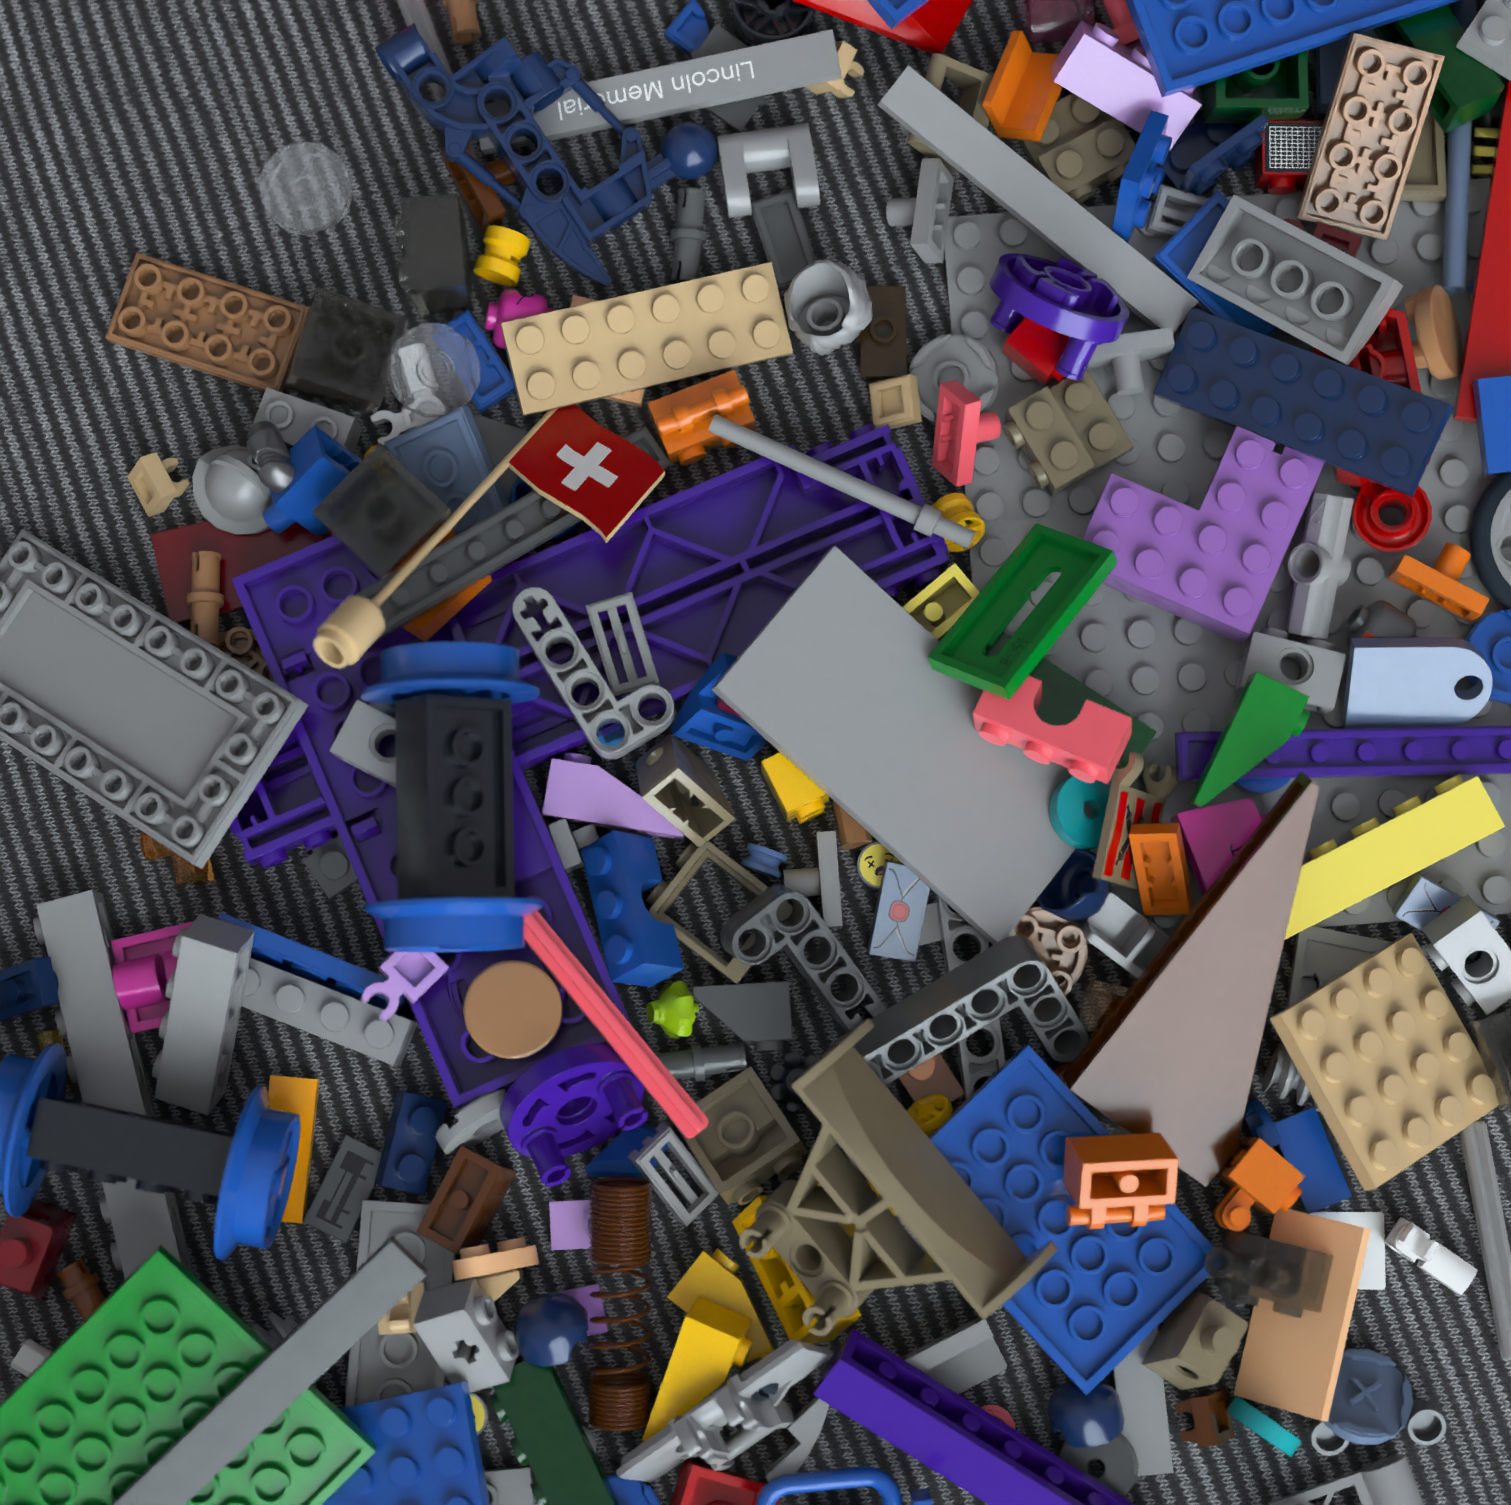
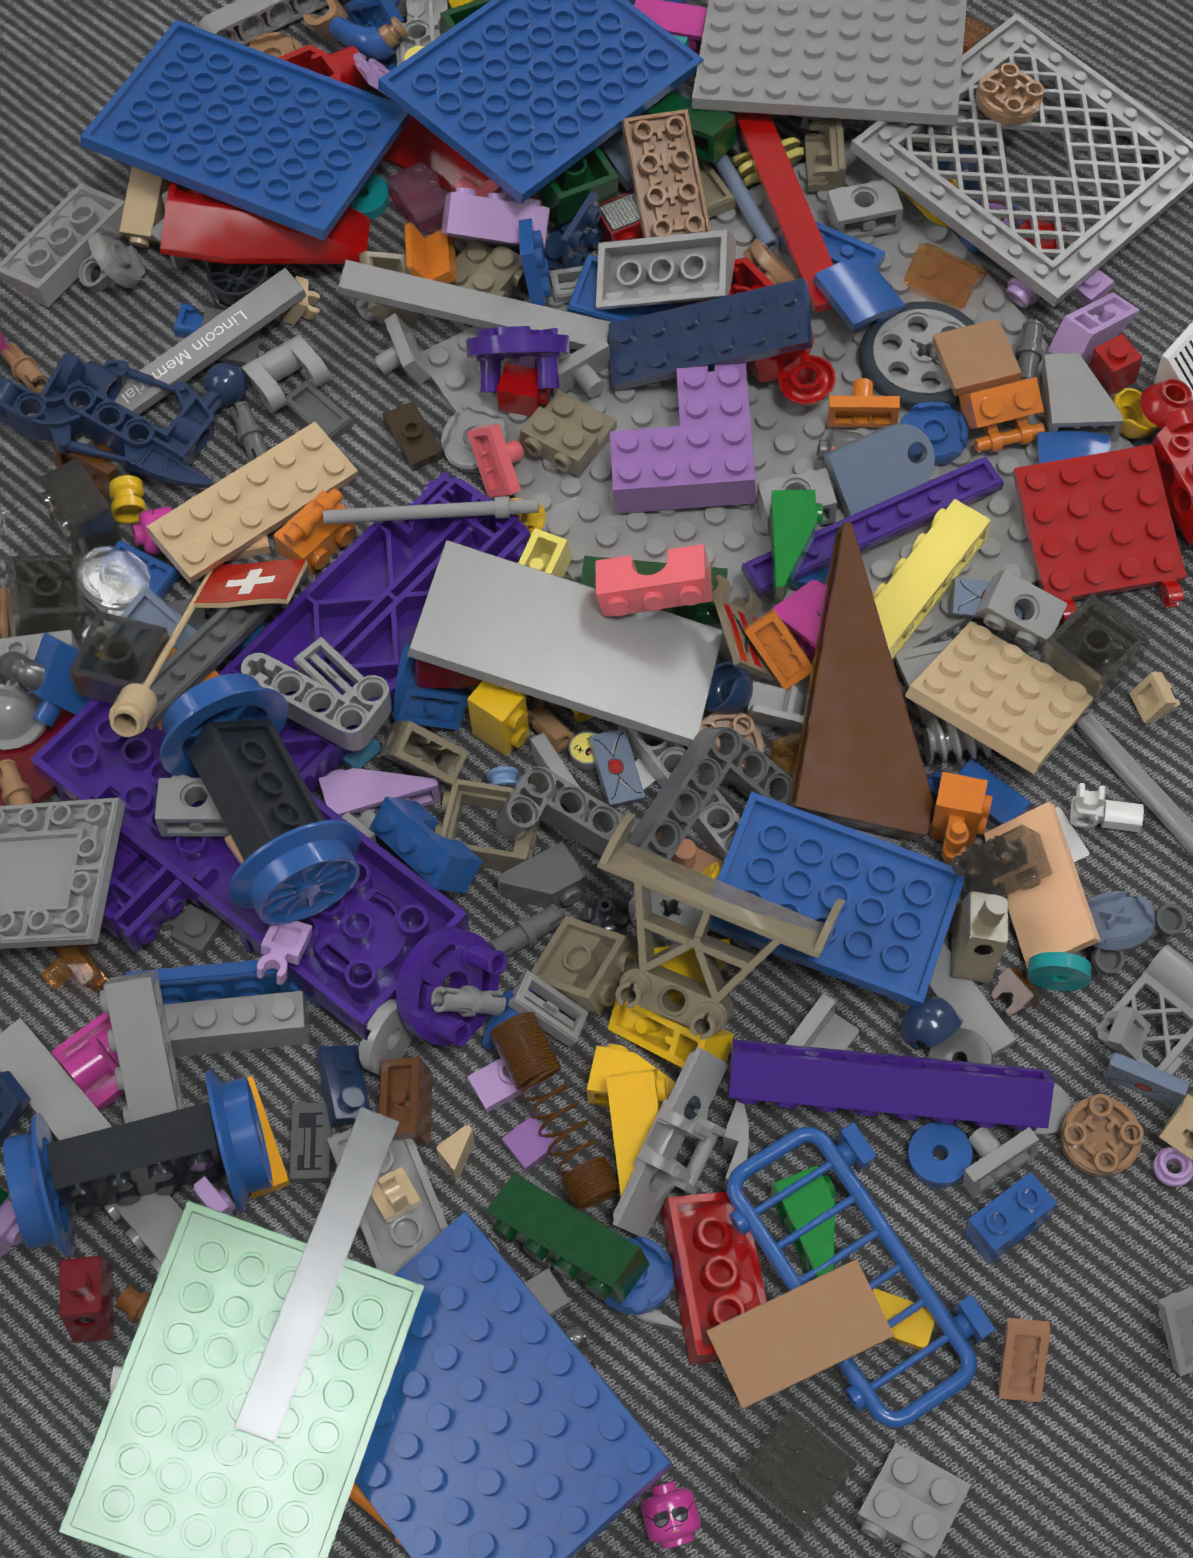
camera: 25 degrees left, 20 degrees down
(201, 1226) = (212, 1199): none -> lavender plate
(466, 1335) = (430, 1178): light grey brick -> none
(479, 1261) = (437, 1128): light nougat plate -> none
(513, 1009) = (373, 934): medium nougat tile -> none
(550, 1328) = (511, 1151): dark blue hair -> none
(584, 1131) = (468, 1001): none -> light grey pin
(613, 1026) = (454, 914): coral axle -> none
(673, 1010) = (491, 903): lime piece -> none
(827, 305) = (365, 426): light grey hair -> none
(895, 402) = (443, 461): tan tile -> none
(1039, 554) = (620, 491): green piece -> none
(1068, 815) = (695, 638): teal piece -> none
(1119, 1179) = (859, 833): orange brick -> none
(1315, 584) = (777, 426): light grey piece -> none

